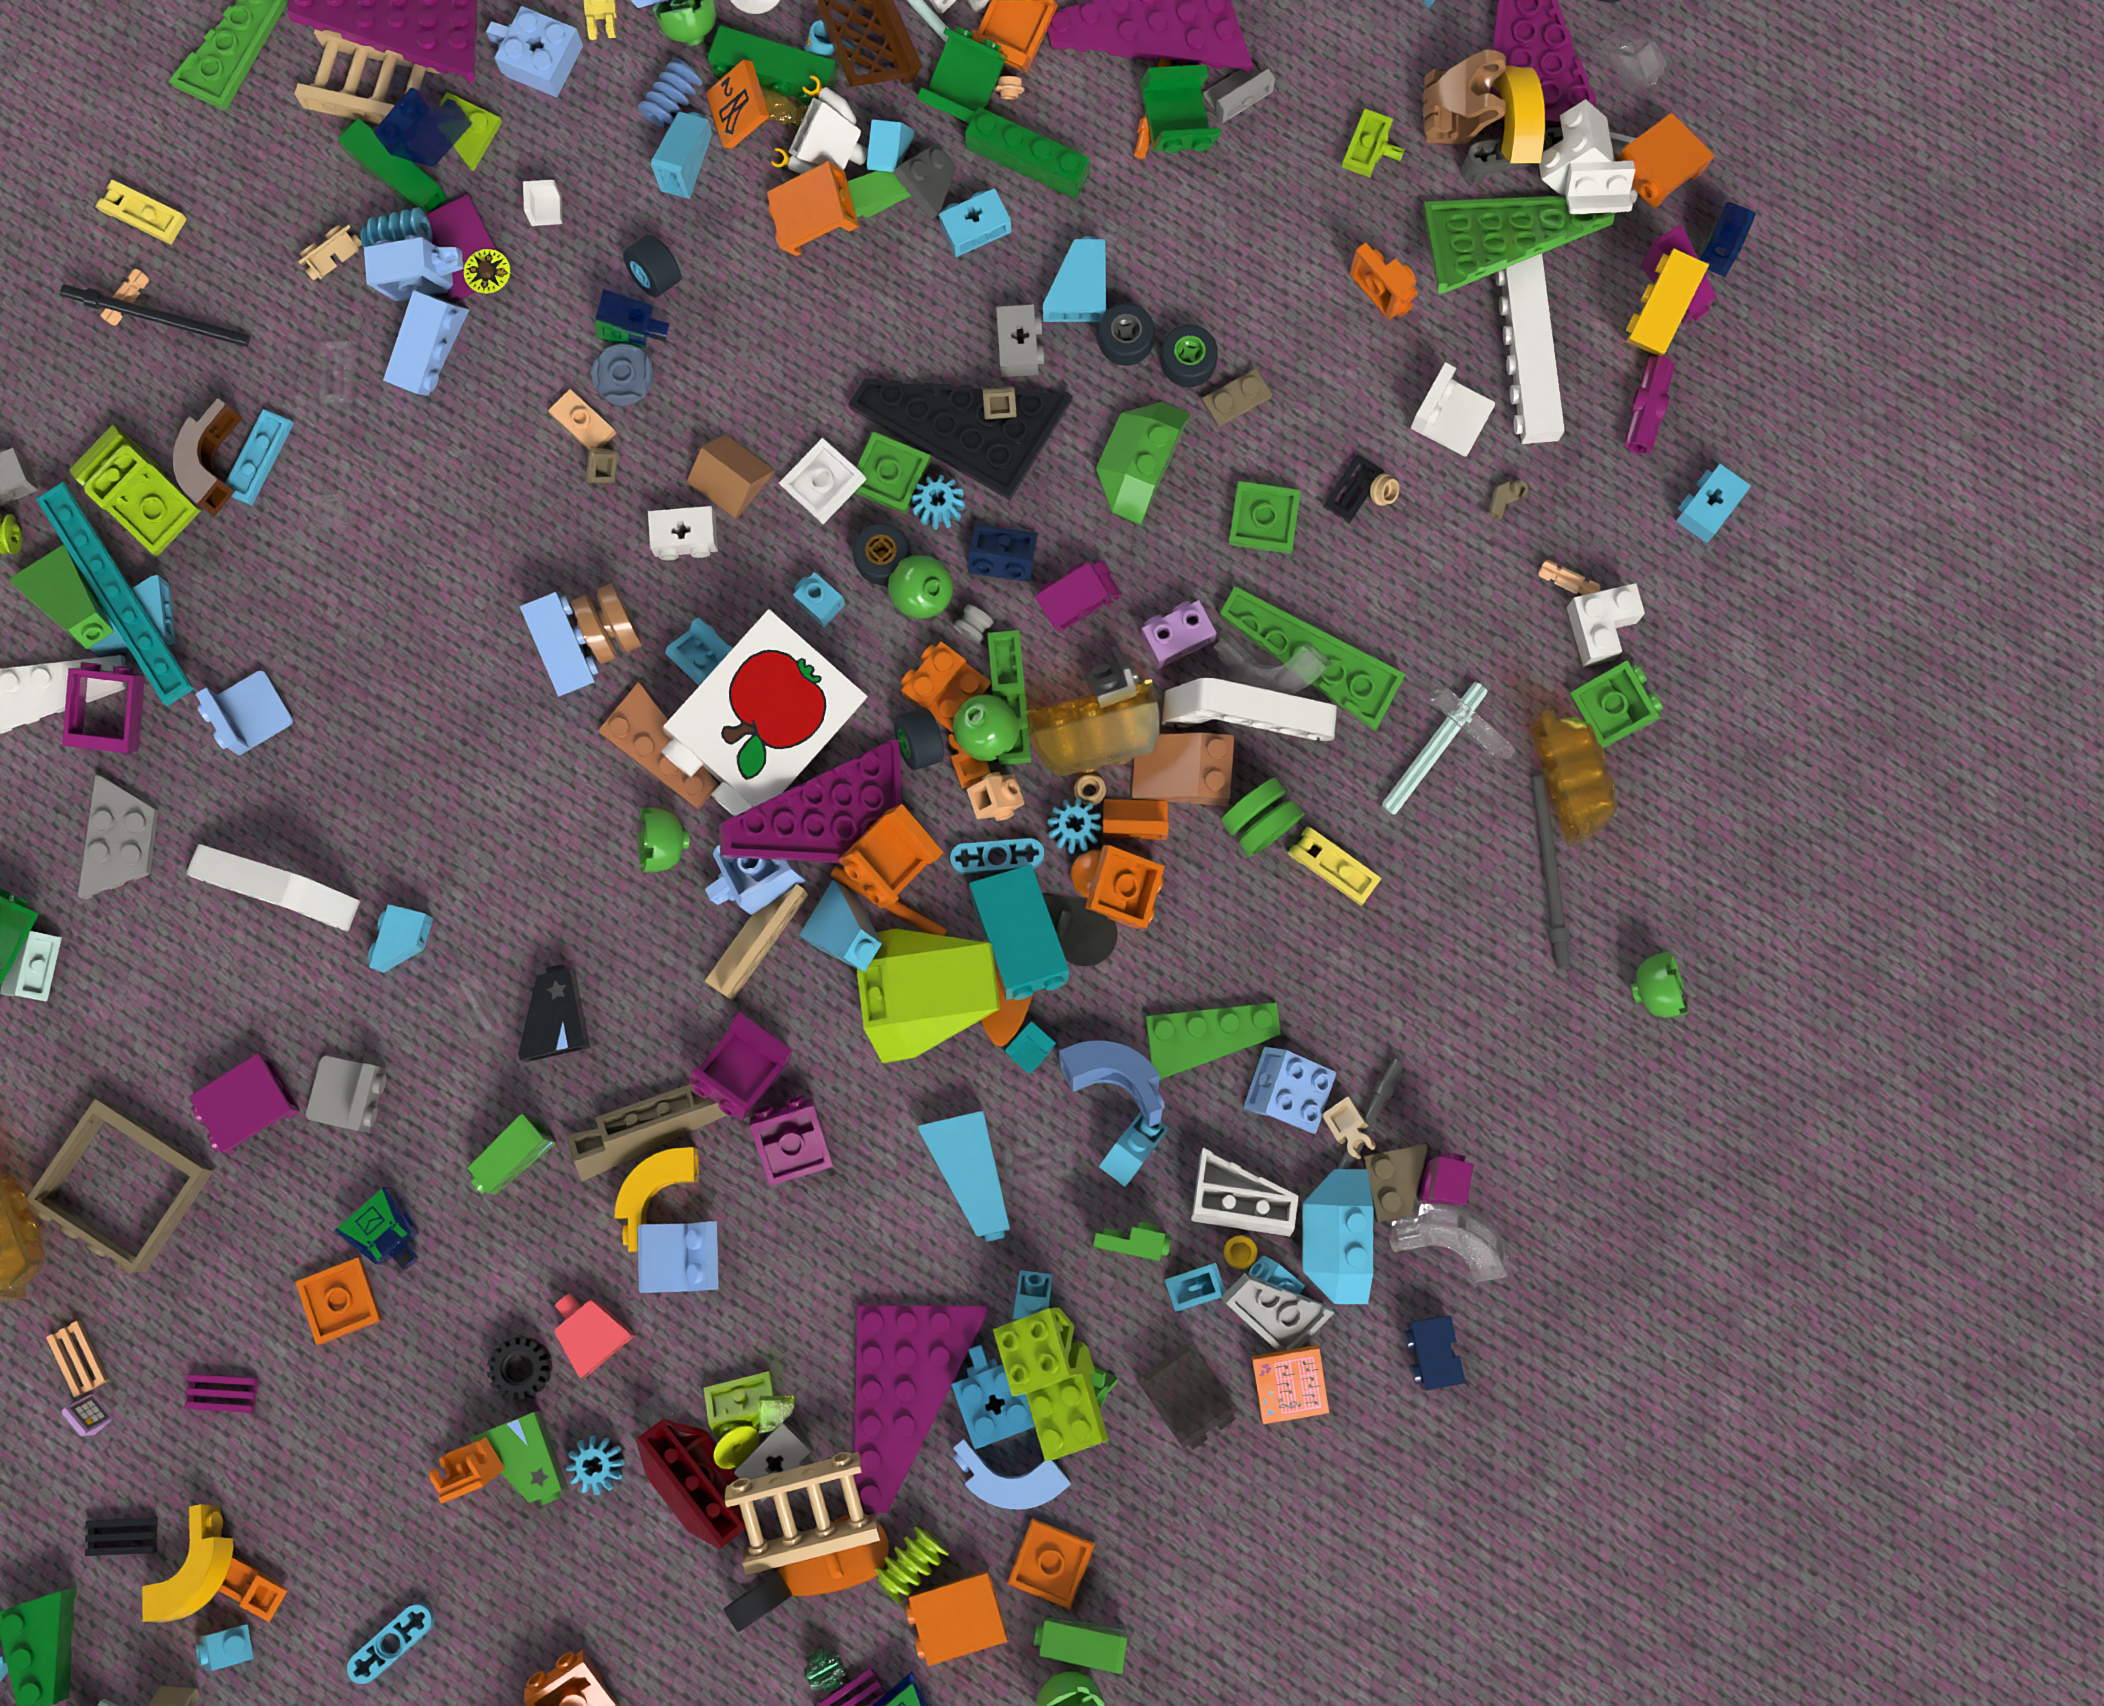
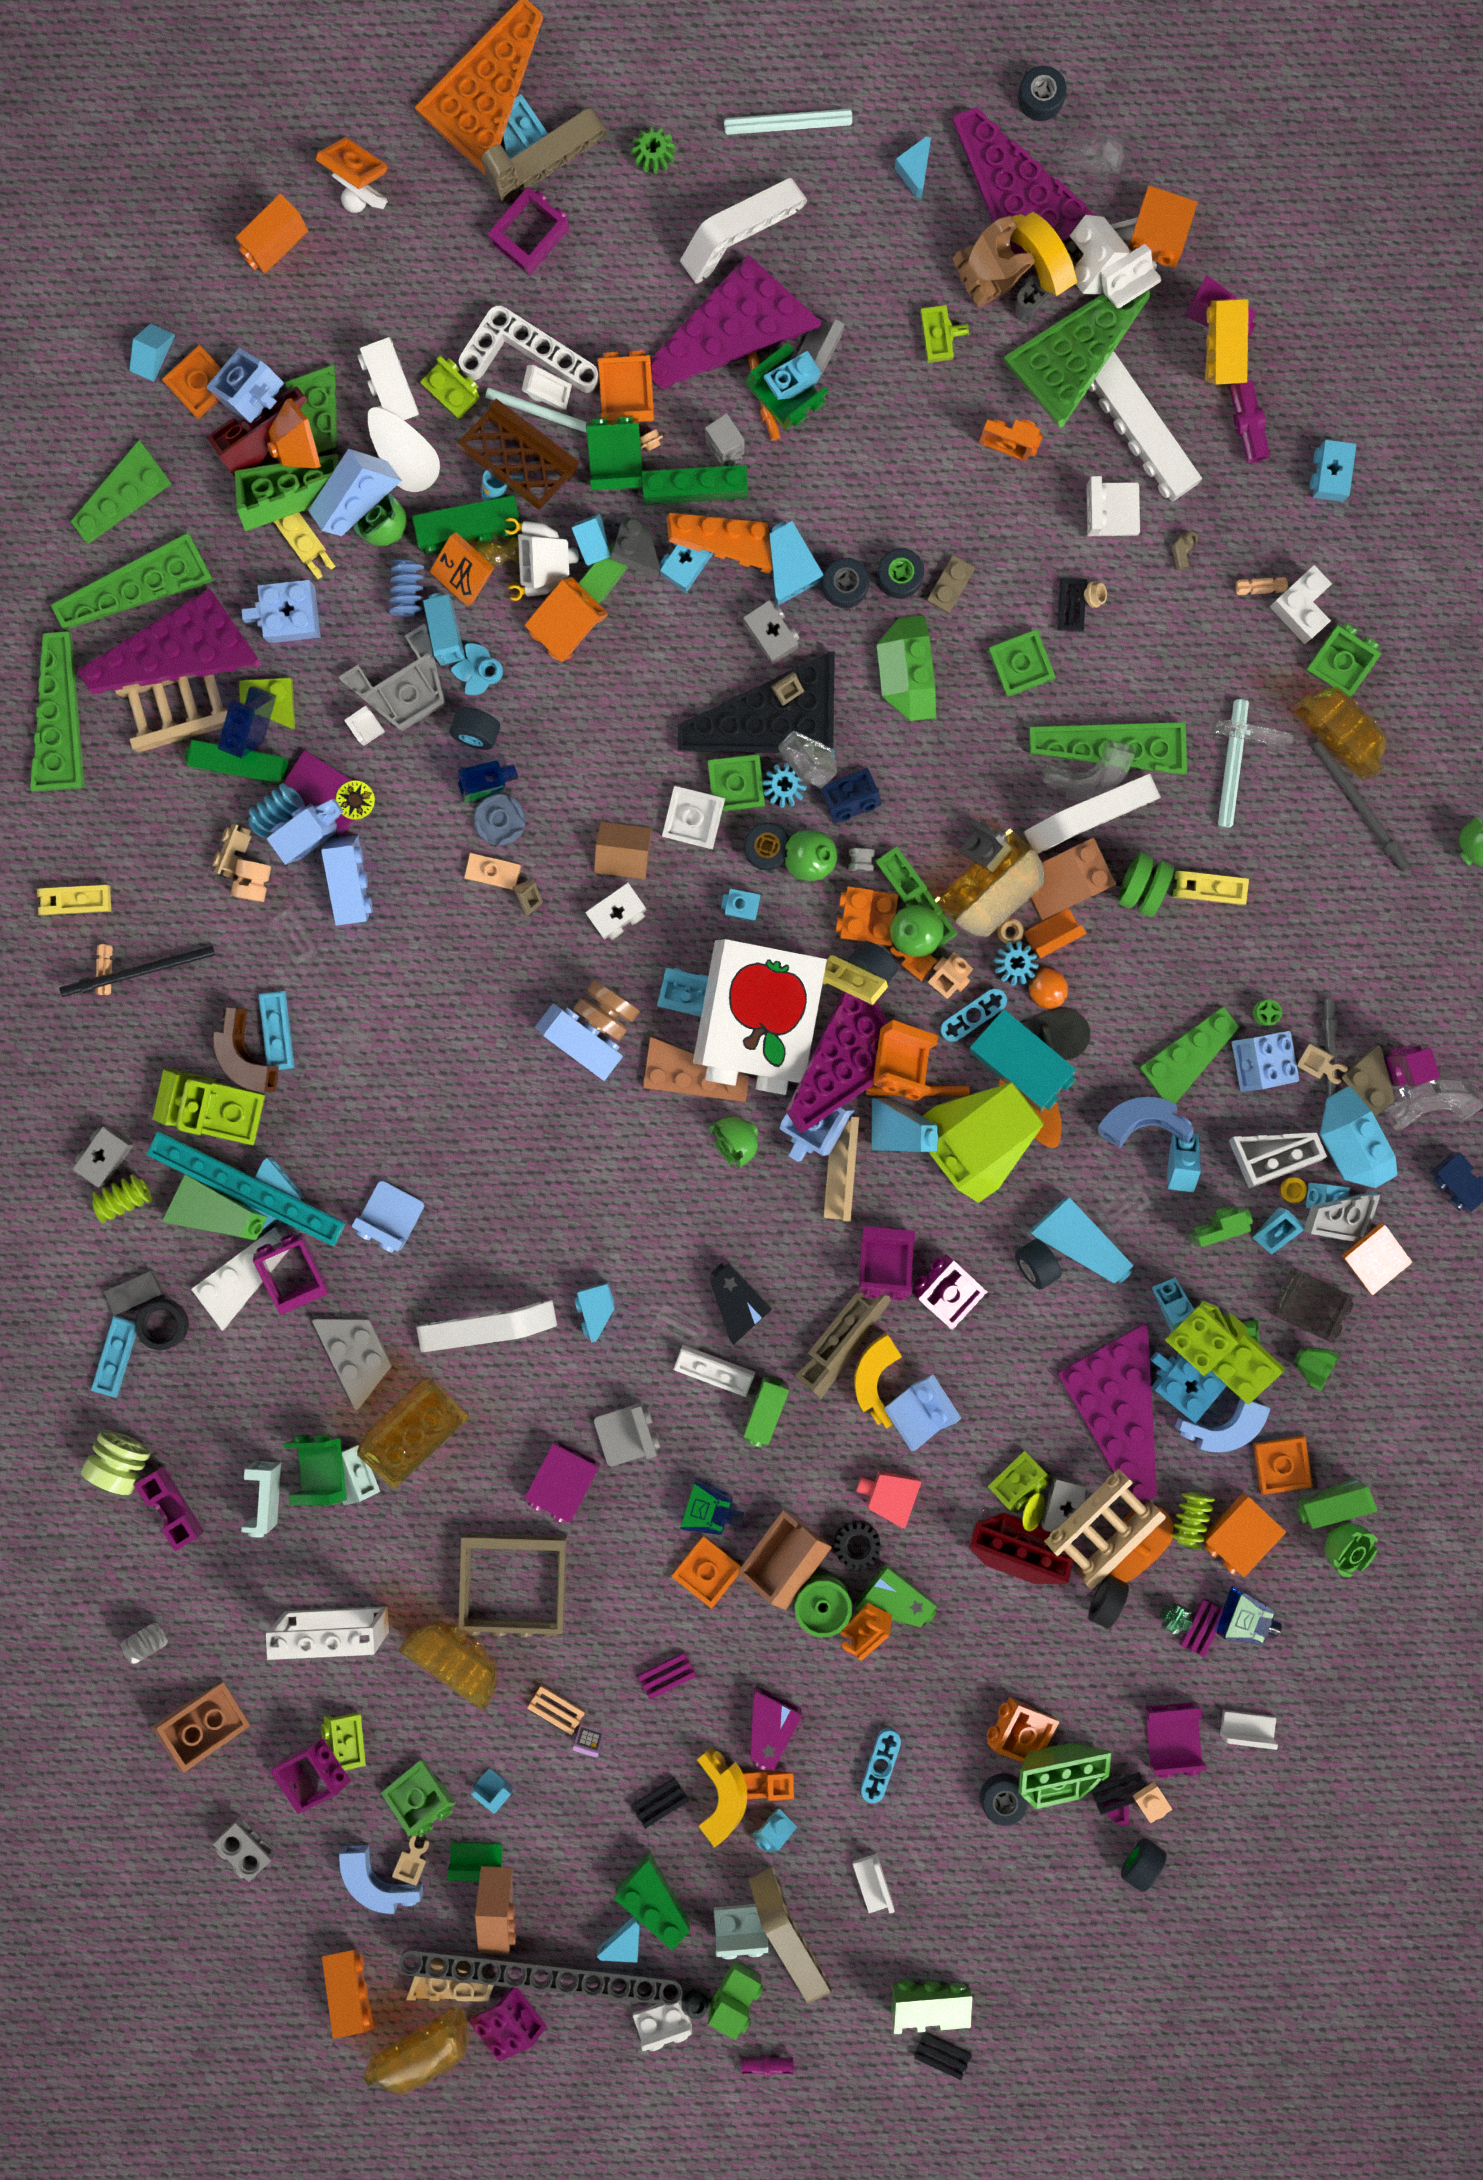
camera: 30 degrees left, 10 degrees up
(115, 952) = (411, 1432): none -> clear yellow windscreen
(295, 1521) = (772, 1727): none -> magenta slope
(328, 290) = (252, 871): none -> light nougat wheel
(420, 1423) = (826, 1620): none -> bright green wheel
(425, 1333) = (784, 1560): none -> nougat piece
(484, 1079) = (714, 1370): none -> white tile
(591, 1452) = (939, 1572): medium azure gear -> none
(606, 196) = (408, 693): none -> light grey wing
(690, 212) = (474, 669): none -> medium azure plate
(774, 1411) = (1047, 1475): clear neon green tile -> none
(885, 739) = (853, 980): none -> light yellow plate
(906, 1166) = (1038, 1264): none -> black wheel
(978, 485) = (809, 759): none -> clear slope
(1023, 216) = (723, 537): none -> orange wing
(1030, 1048) = (1074, 1134): teal panel -> none
(1077, 594) = (923, 797): magenta hinge -> none
(1083, 122) = (725, 441): none -> light grey brick
(1125, 887) = (1078, 988): orange plate -> none
(1152, 1467) = (1316, 1365): none -> bright green brick
(1178, 633) = (1009, 784): lavender brick -> none
(1190, 100) = (793, 377): none -> medium azure slope
(1324, 1031) = (1272, 1012): none -> bright green wheel
(1729, 233) = (1238, 258): clear blue torso -> none

